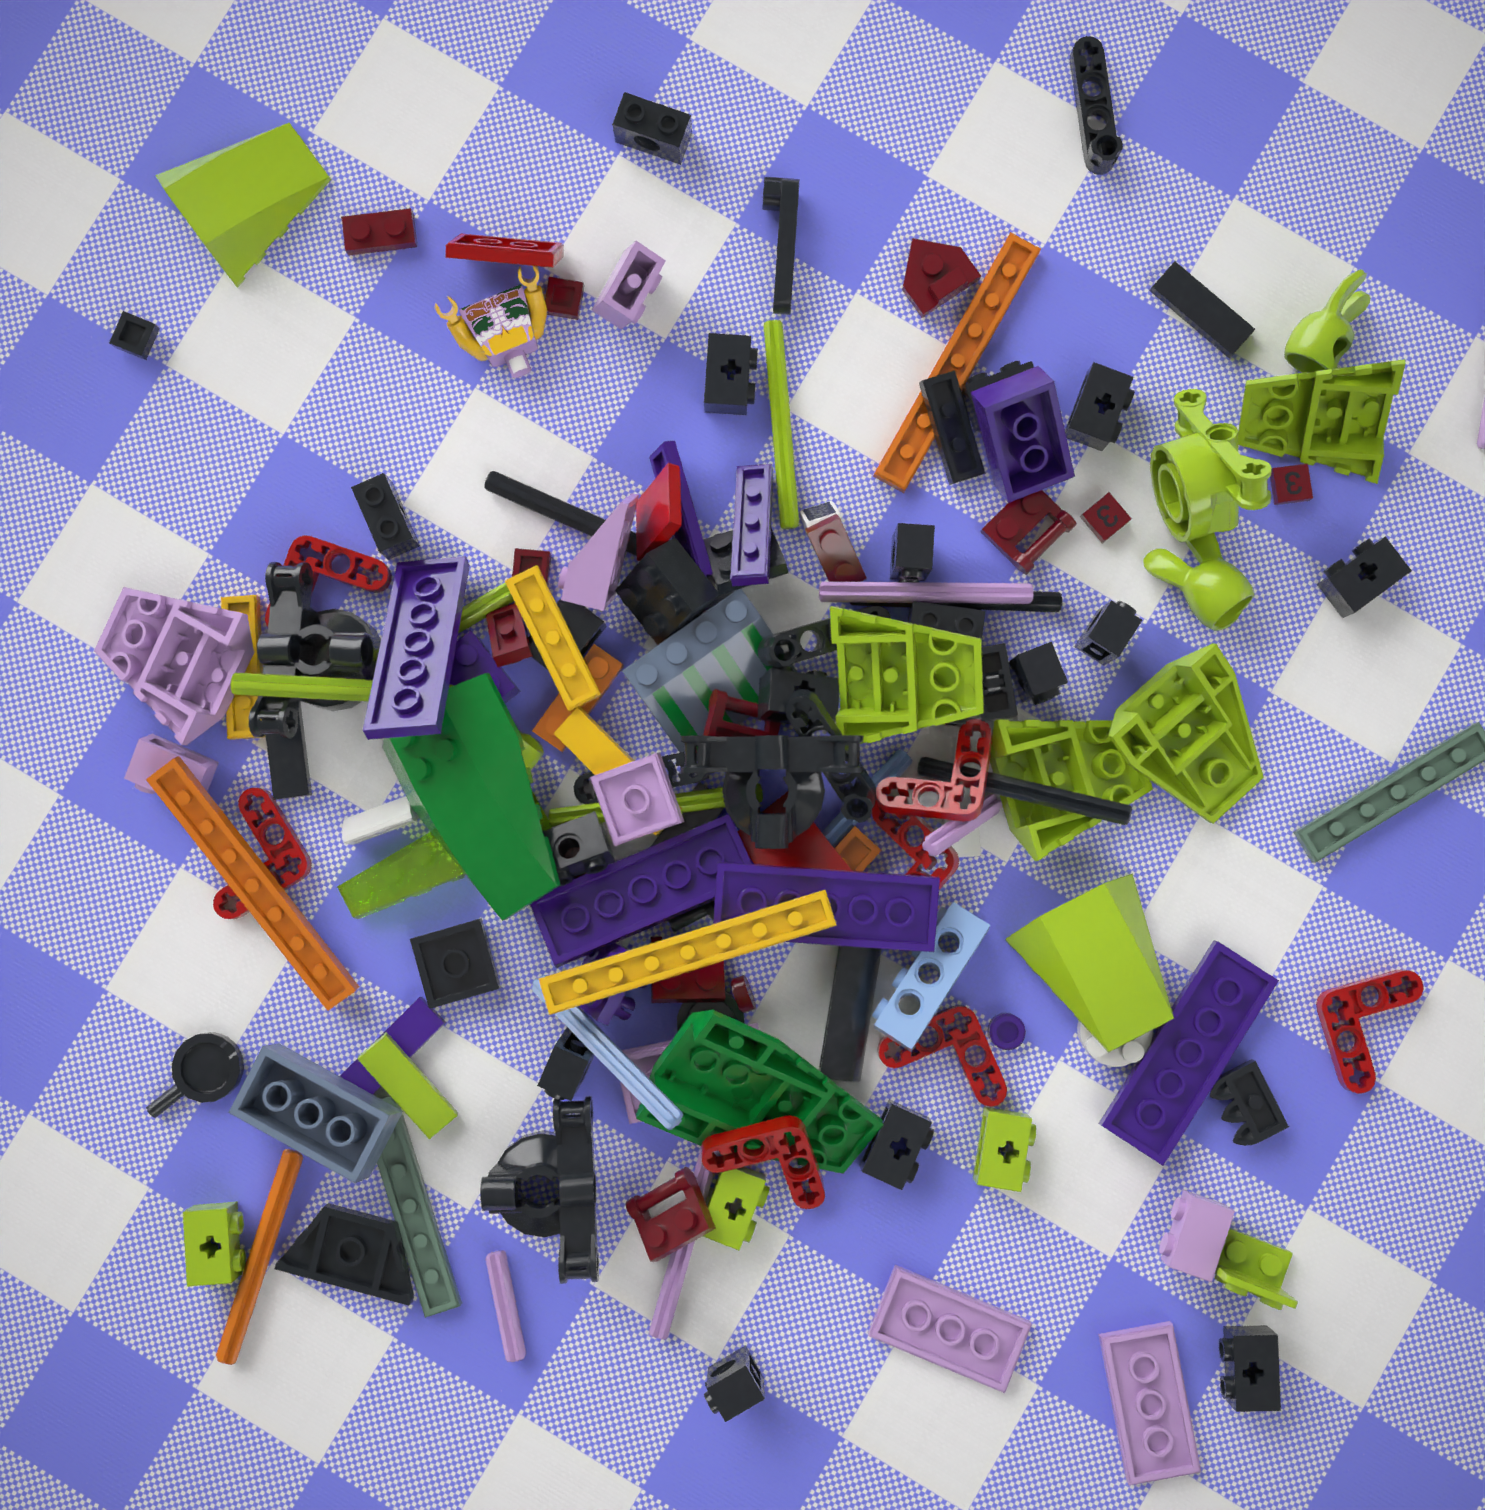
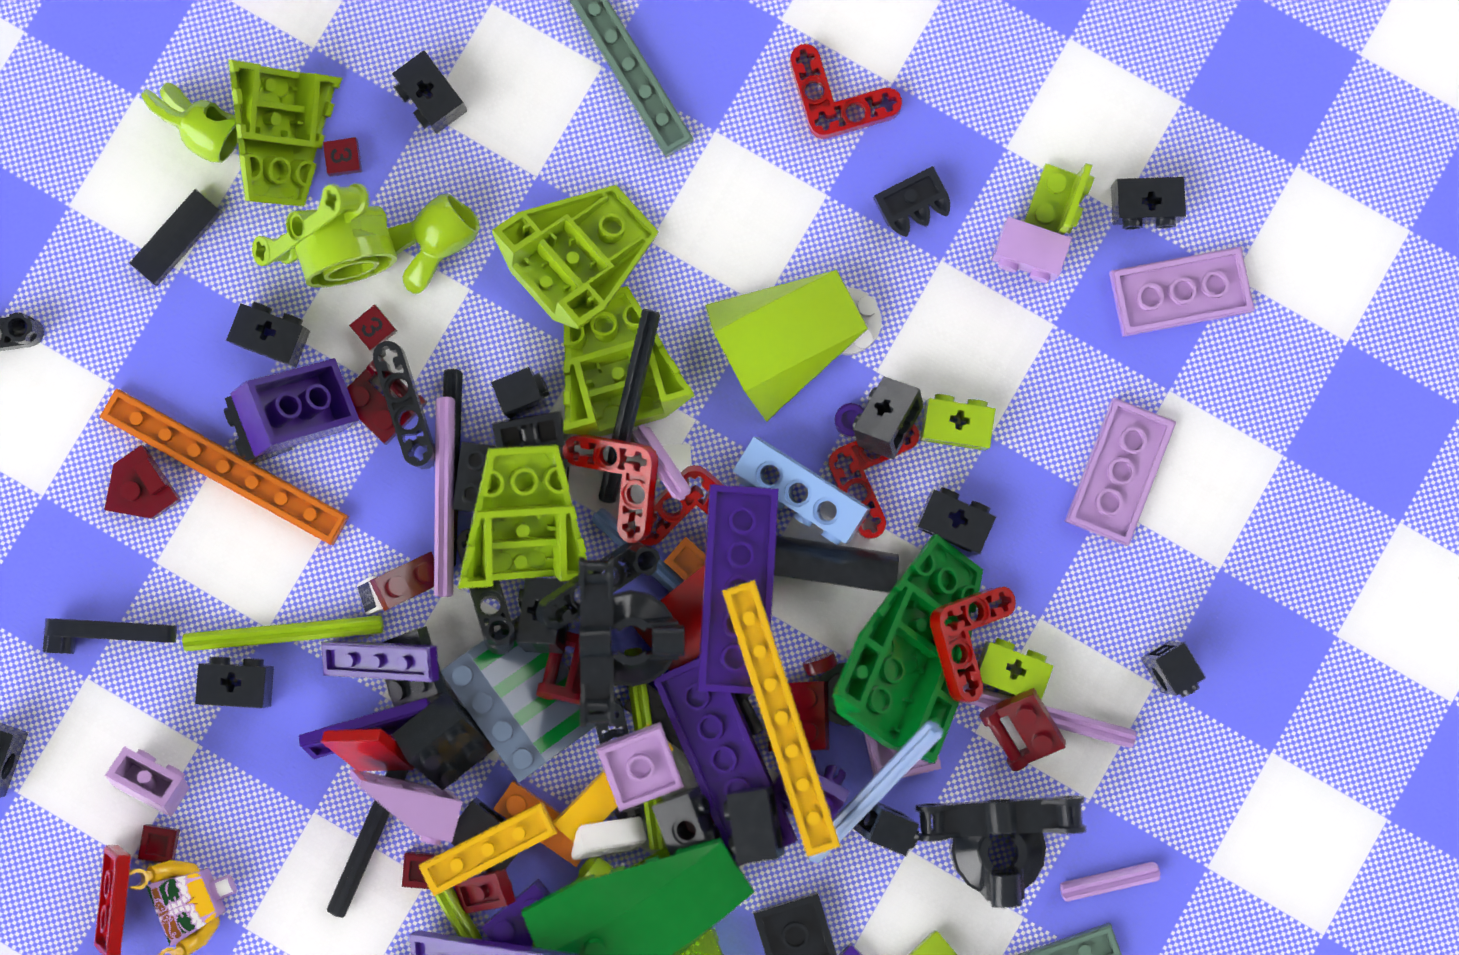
camera: 90 degrees left, 0 degrees up
(561, 765) = (608, 838): none -> white slope
(573, 921) = (754, 824): none -> black brick
(912, 552) = (407, 510): black brick -> none
(952, 427) = (287, 472): black tile -> none
(1011, 1072) = (888, 417): none -> black brick
(1024, 547) = (399, 406): none -> black beam
(1109, 632) = (481, 327): black brick -> none
(1188, 1052) = (867, 255): dark purple plate -> none

